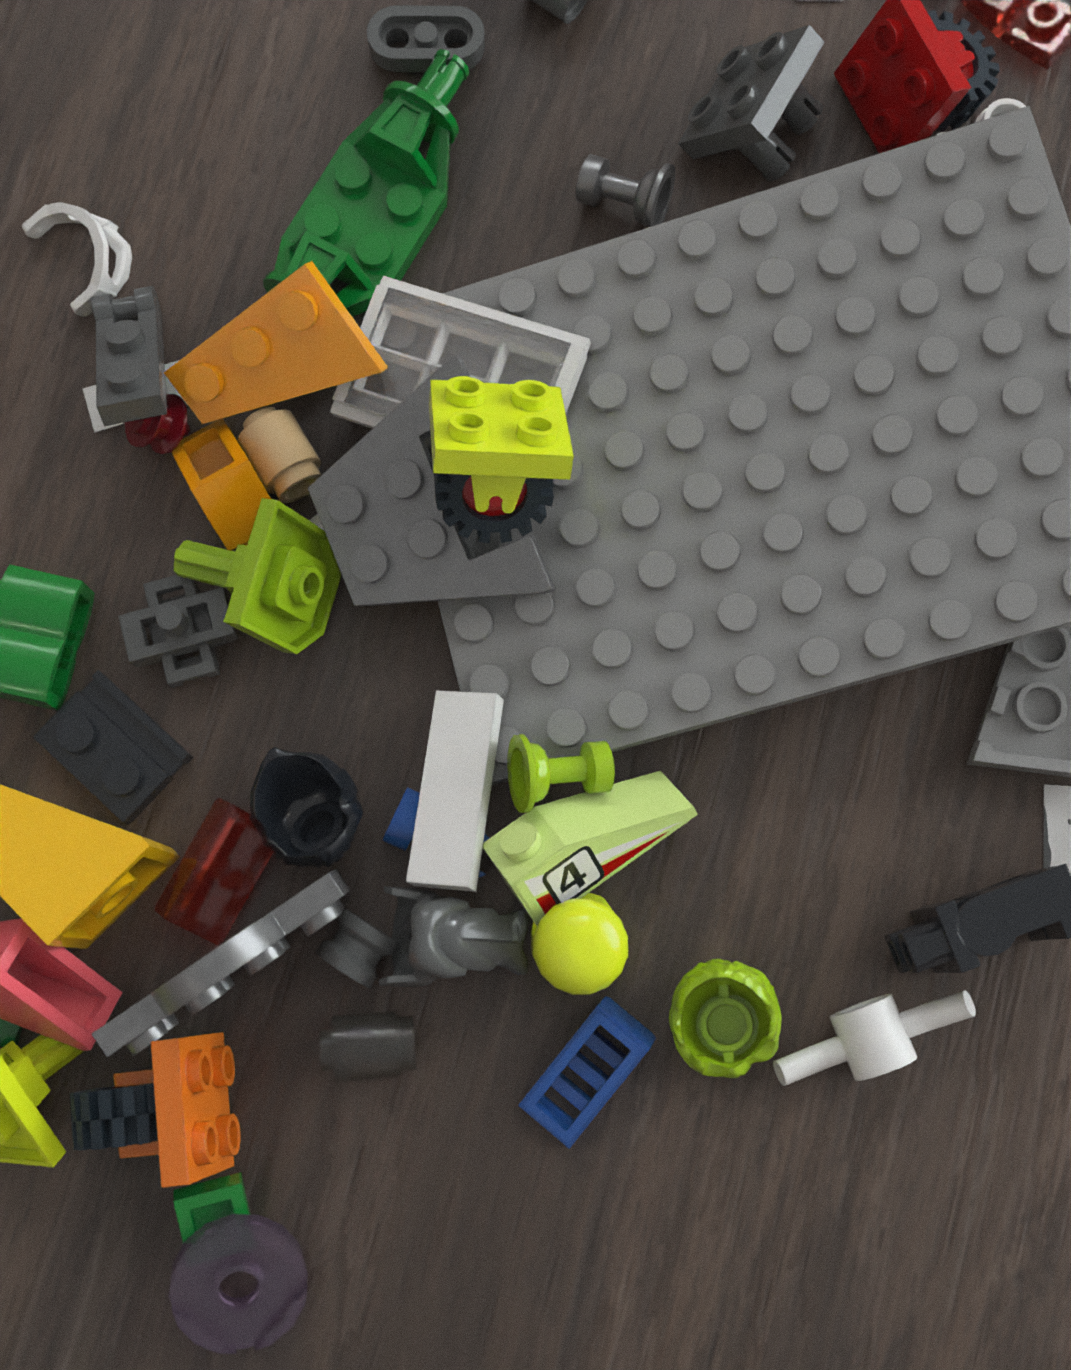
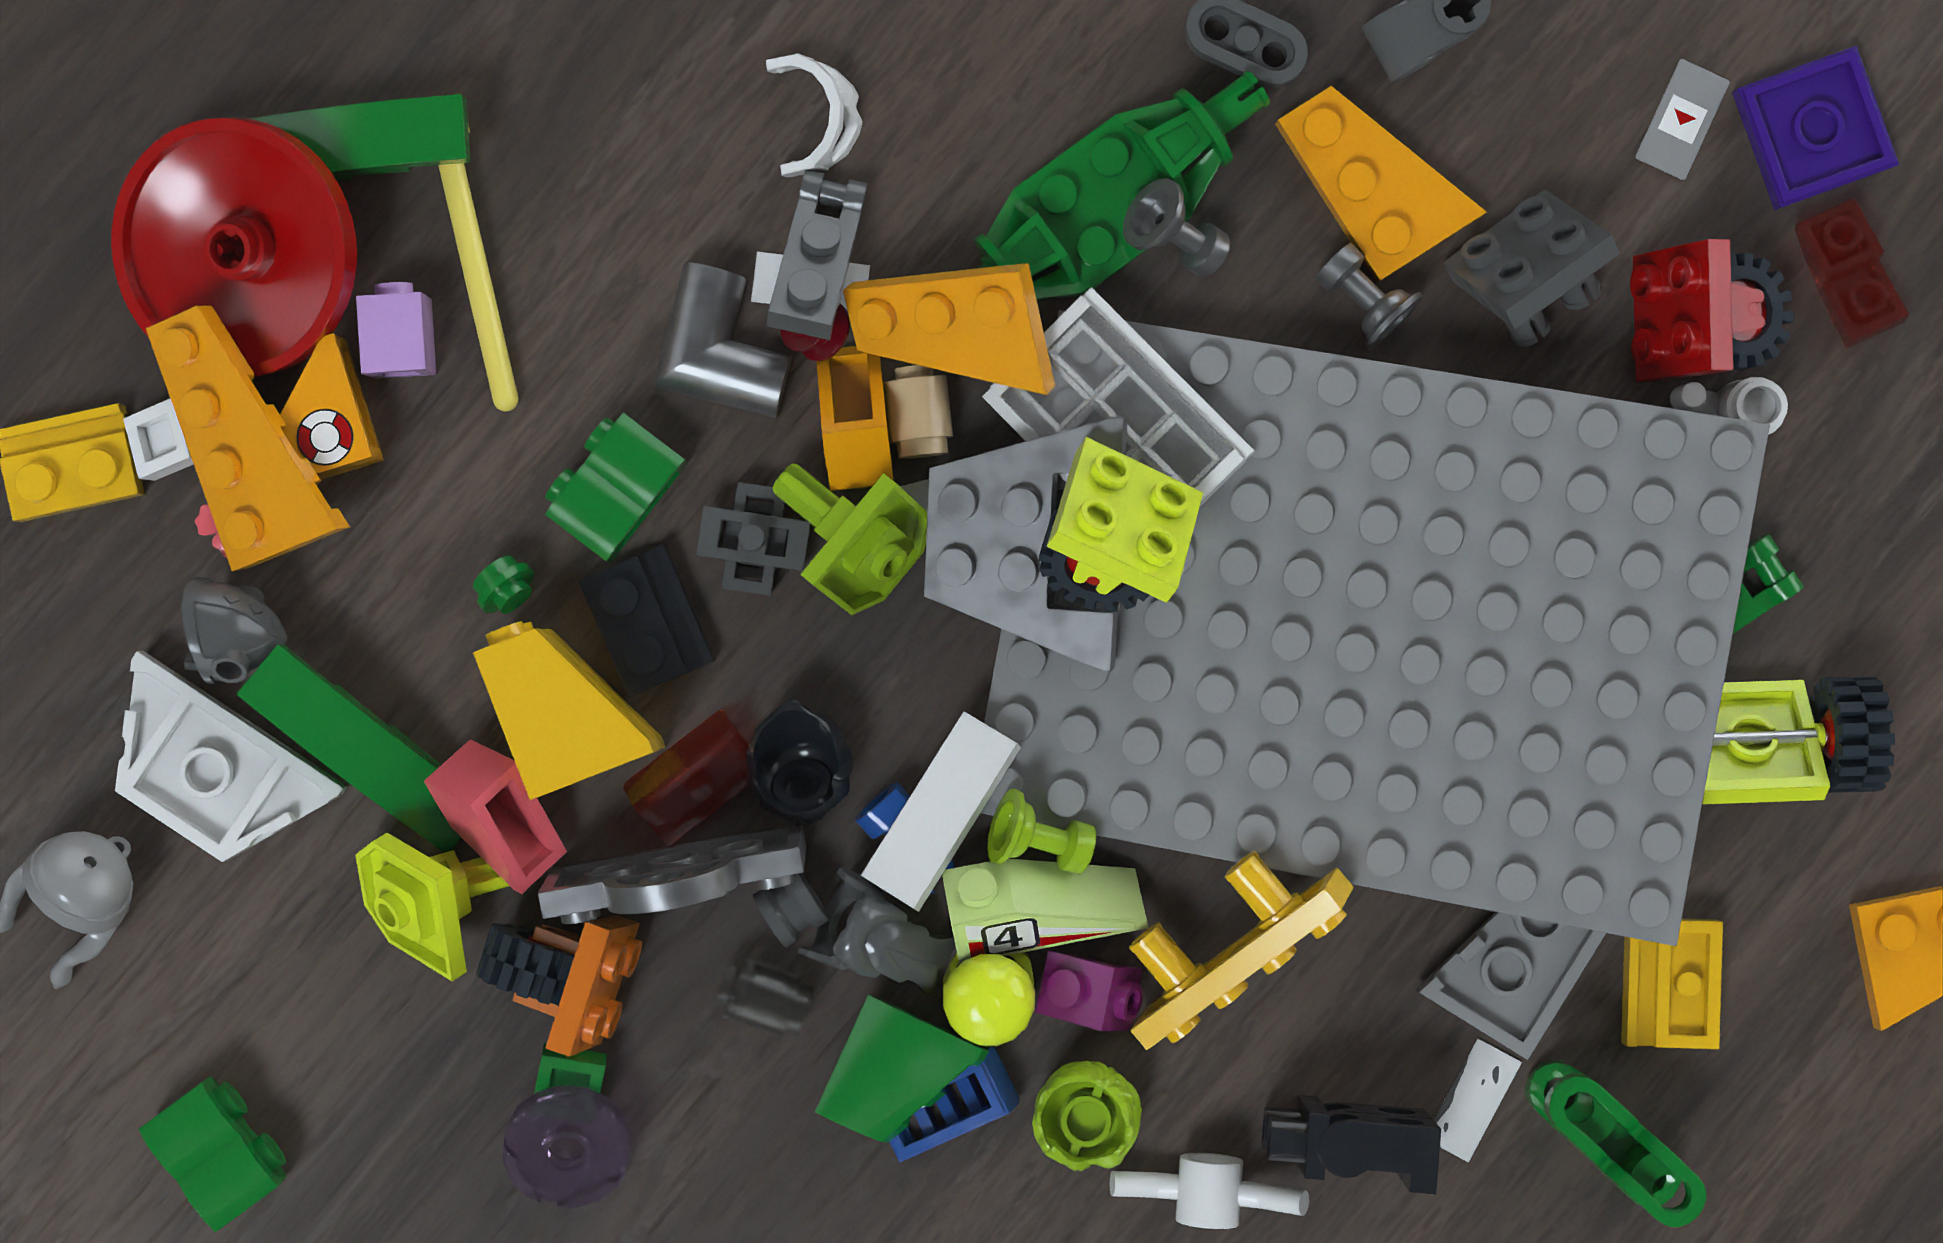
camera: 25 degrees right, 10 degrees up
(69, 494) = (699, 348): none -> flat silver brick
(416, 194) = (1158, 218): none -> flat silver piece
(520, 1059) = (893, 1070): none -> green slope
(588, 105) = (1373, 183): none -> light orange wing
(672, 900) = (1089, 992): none -> magenta bracket
(818, 770) = (1268, 946): none -> yellow plate

